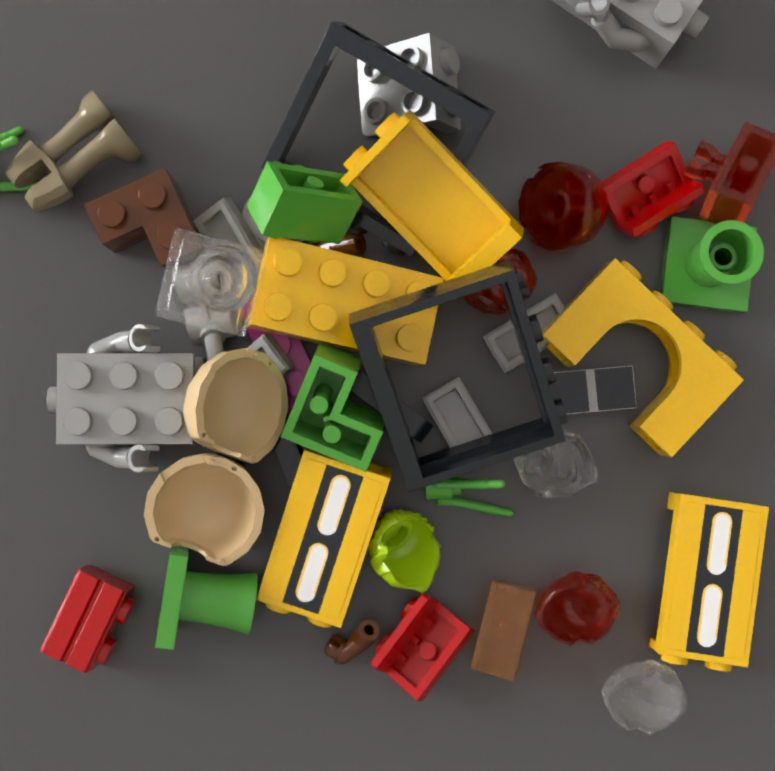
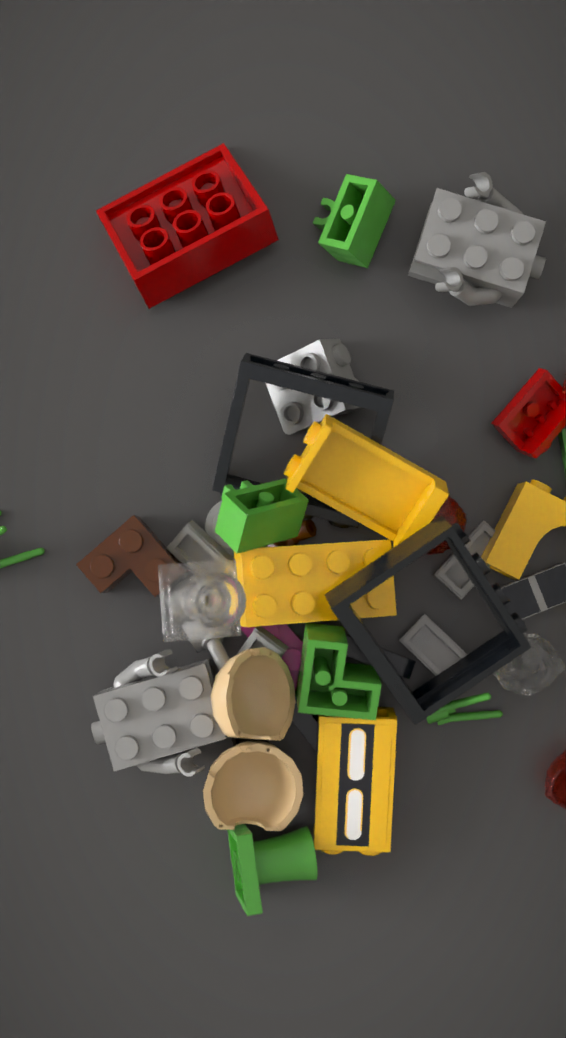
camera: 15 degrees left, 0 degrees up
(57, 187) = (21, 536): dark tan piece -> none
(88, 619) = (177, 905): red brick -> none
(359, 640) = (403, 860): reddish brown arm -> none
(405, 550) = (424, 772): lime hair -> none
(421, 645) = (460, 846): red bracket -> none
(504, 629) = (524, 813): clear orange hinge -> none
(563, 206) = (470, 450): clear red cylinder -> none

